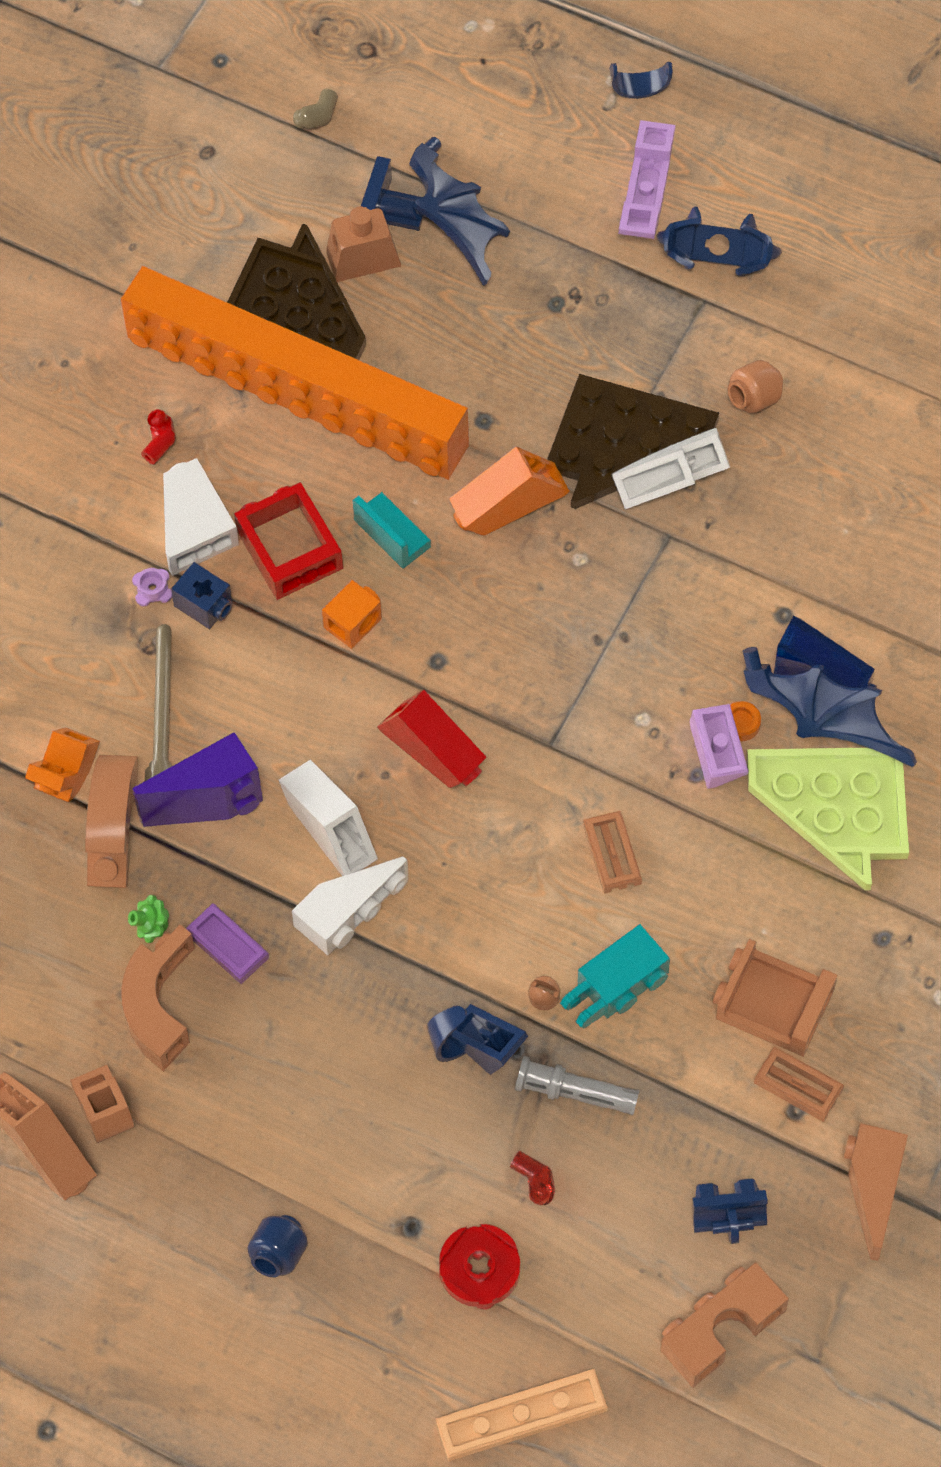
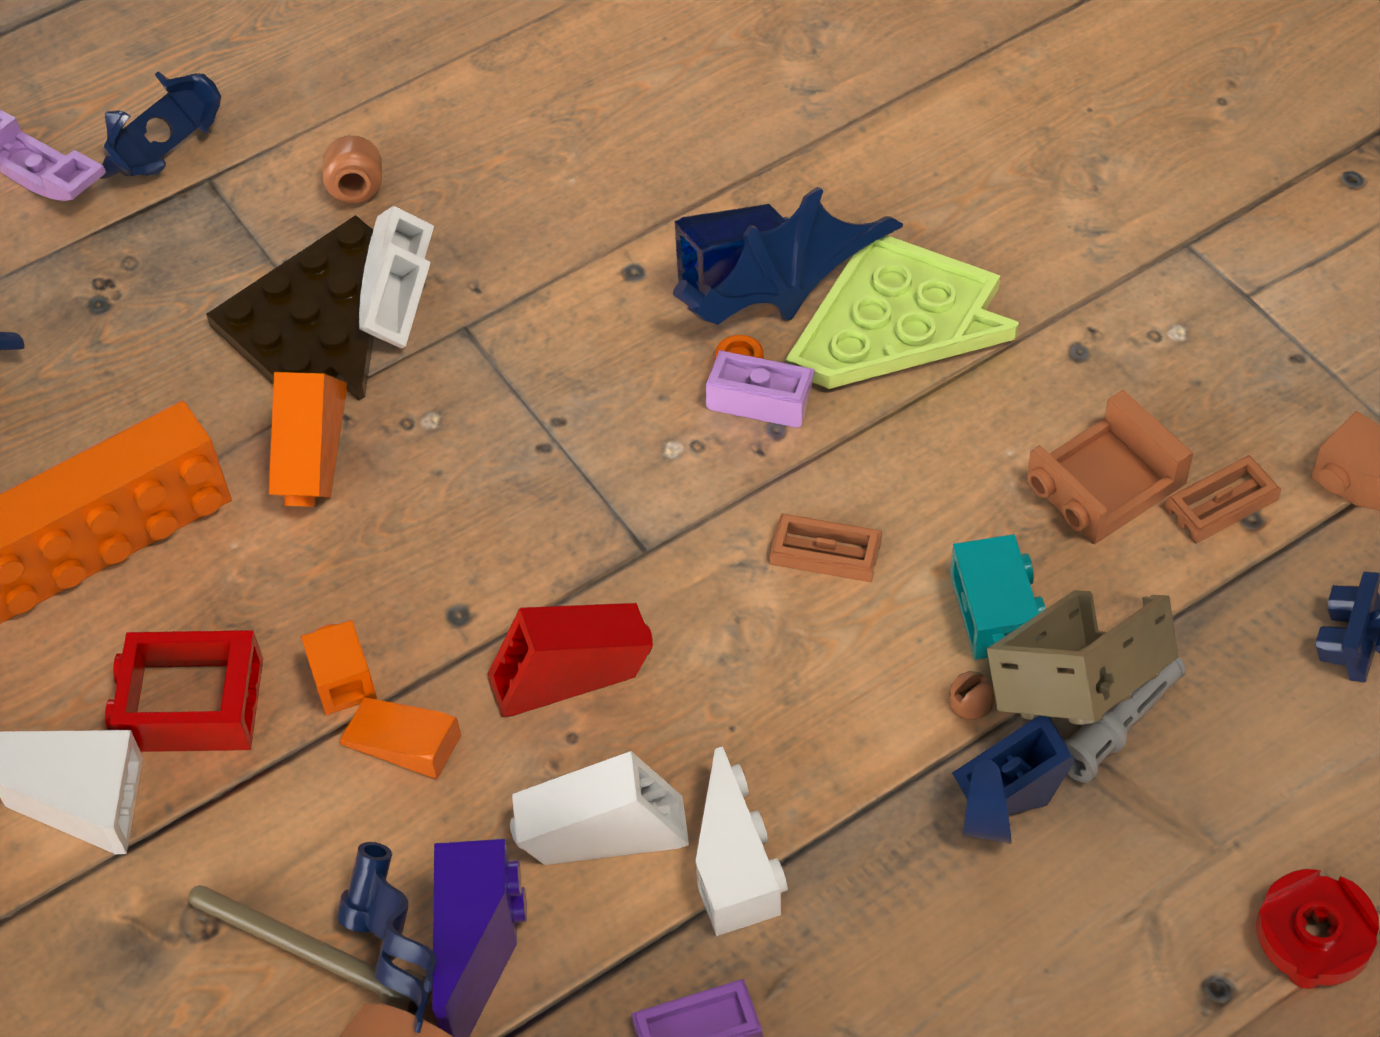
camera: 60 degrees left, 10 degrees down
(150, 577) = (124, 866): lavender plate -> none
(196, 723) = (382, 909): none -> dark blue flag
(202, 596) = (190, 822): dark blue brick -> none
(329, 678) = (403, 735): none -> orange slope
(390, 529) = (253, 581): teal panel -> none
(539, 1178) = (1221, 809): clear red arm -> none
(581, 1036) = (1074, 671): none -> dark tan piece

